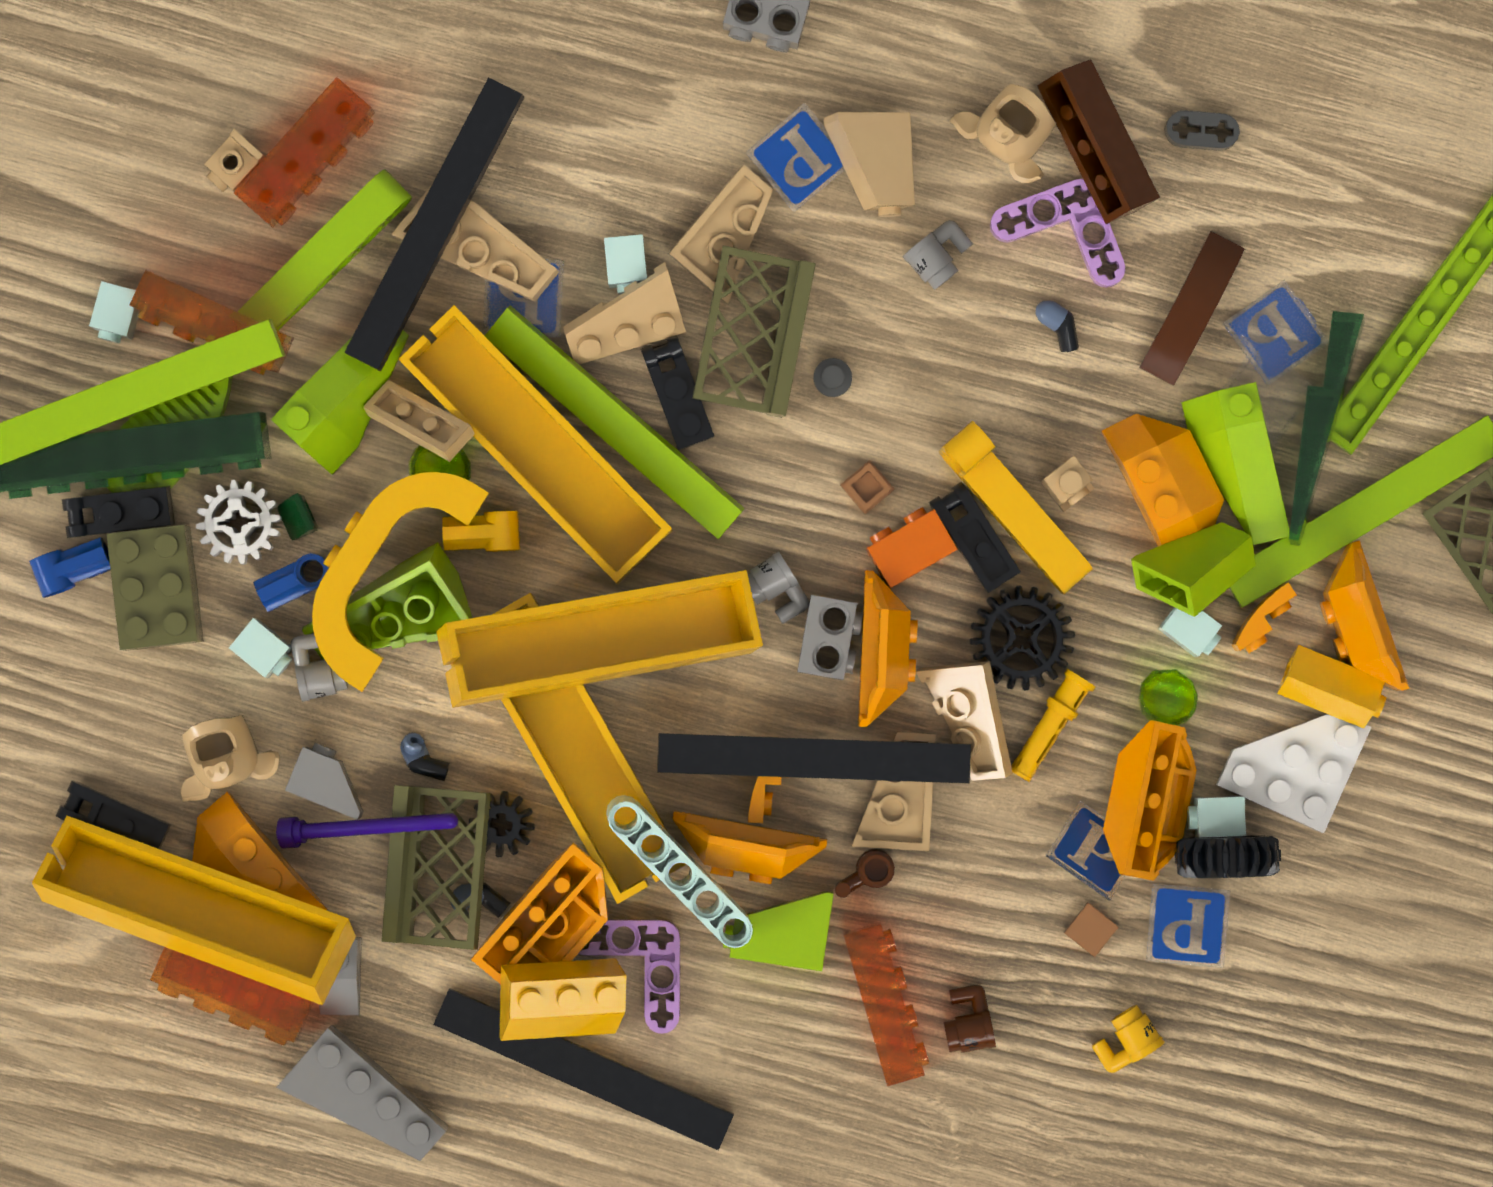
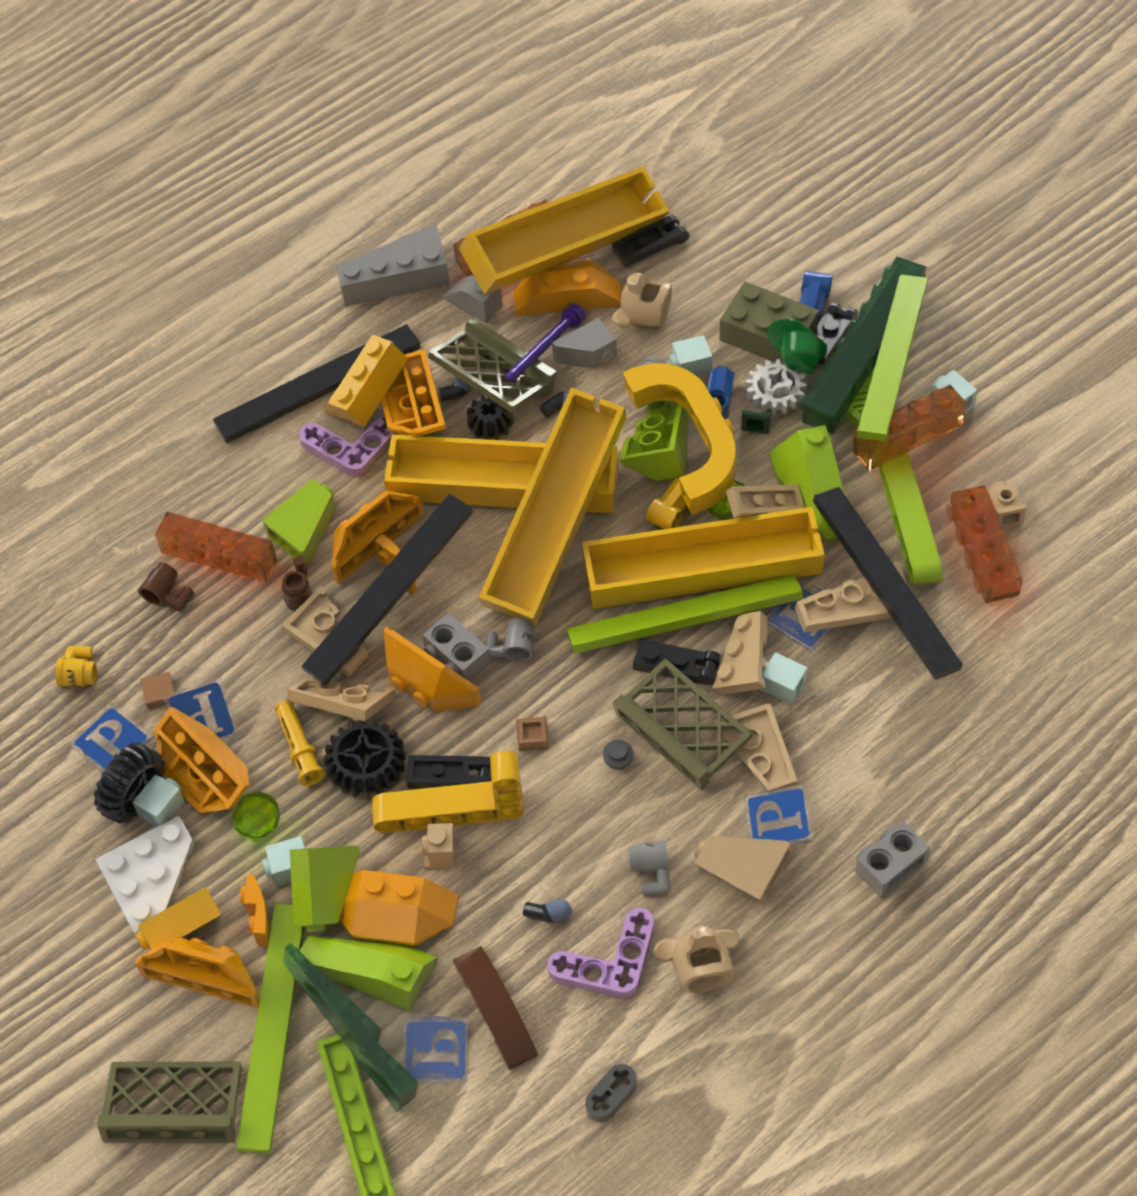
camera: 130 degrees right, 30 degrees down
(188, 515) = (797, 345): none -> green piece
(687, 888) = (381, 467): light aqua beam -> none
(910, 548) = (473, 726): orange brick -> none
(1098, 141) = (652, 1011): reddish brown brick -> none

